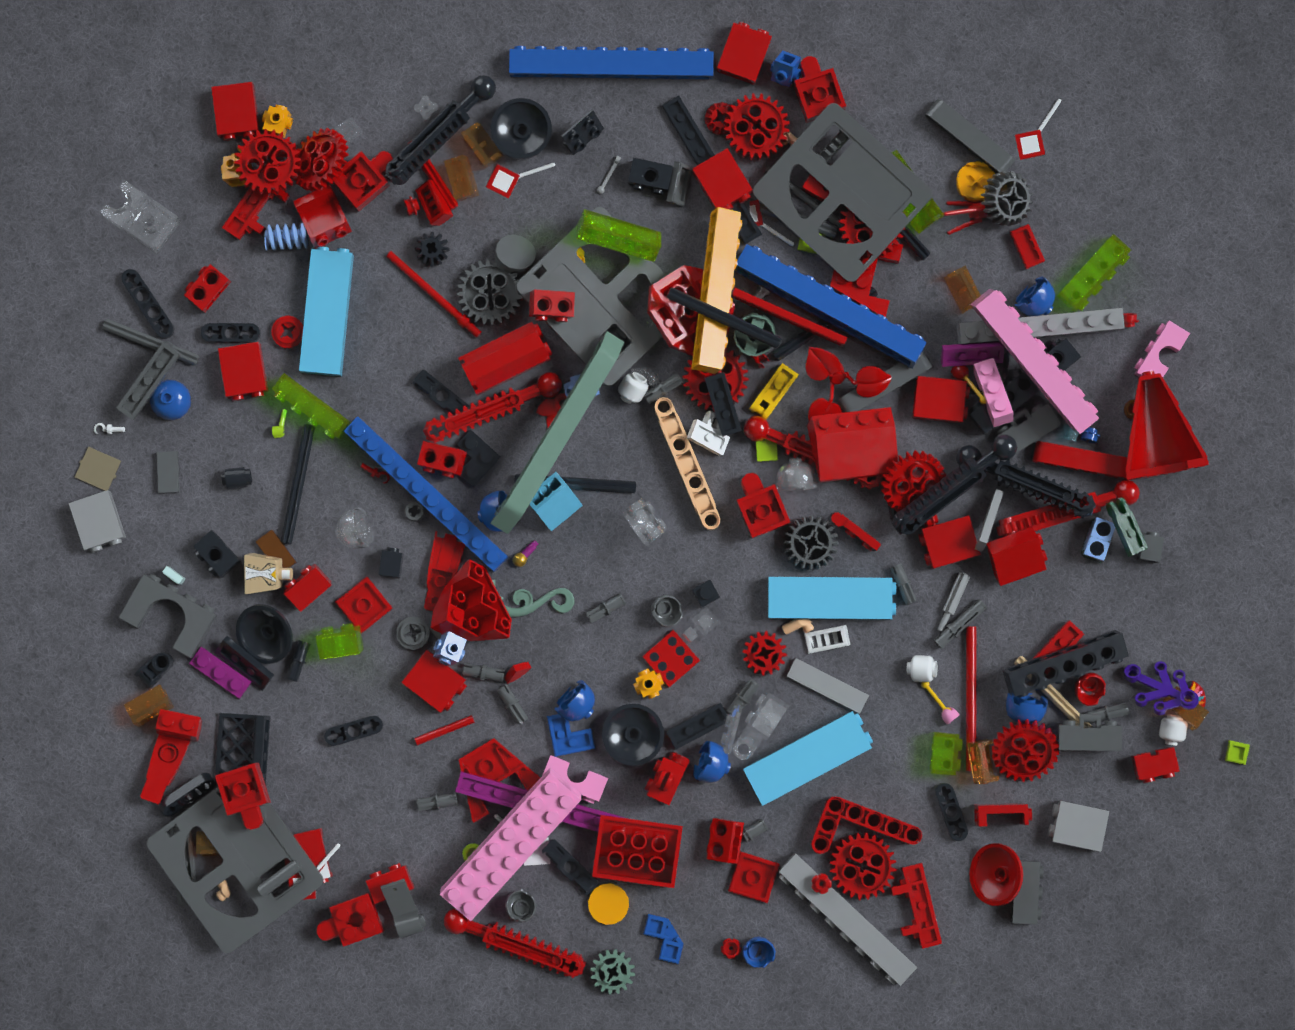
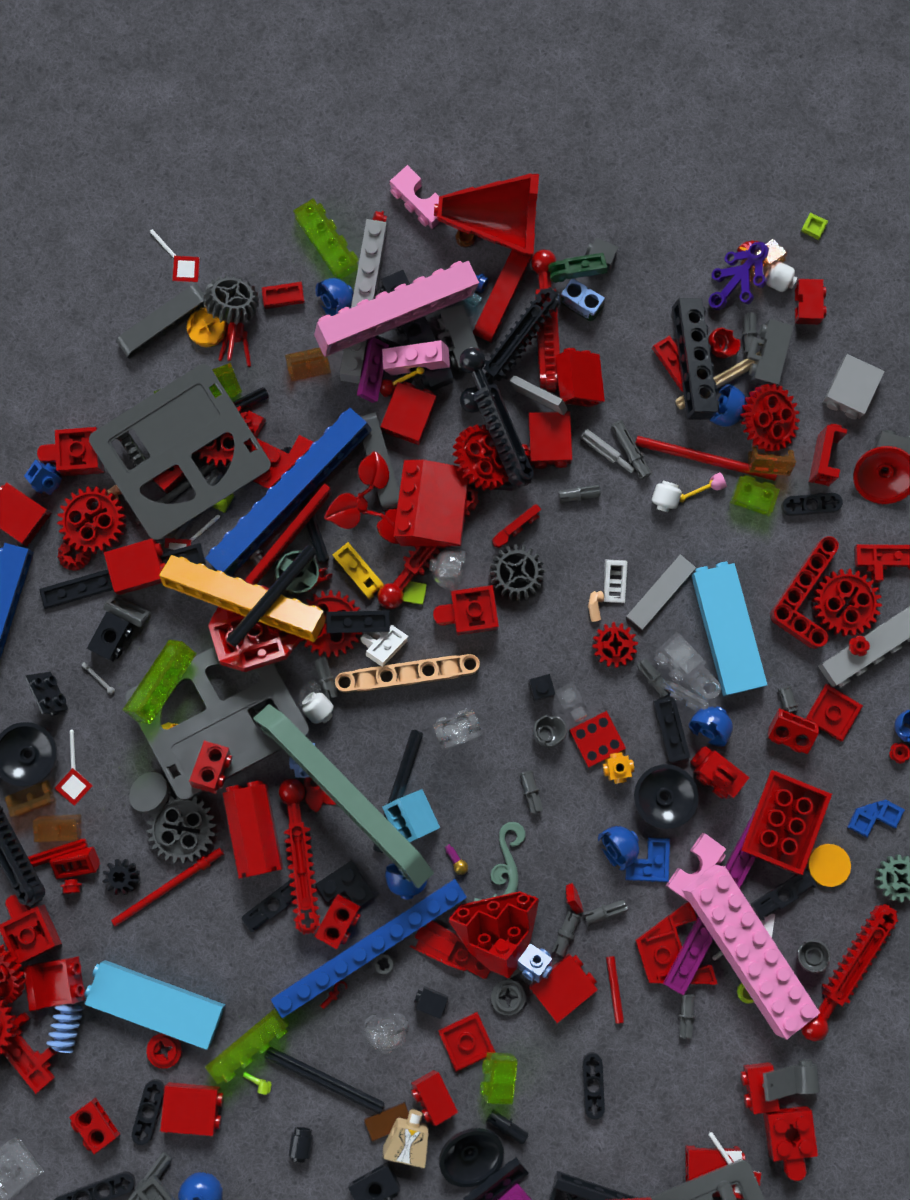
camera: 75 degrees left, 5 degrees down
(830, 598) = (576, 566): medium azure brick -> none

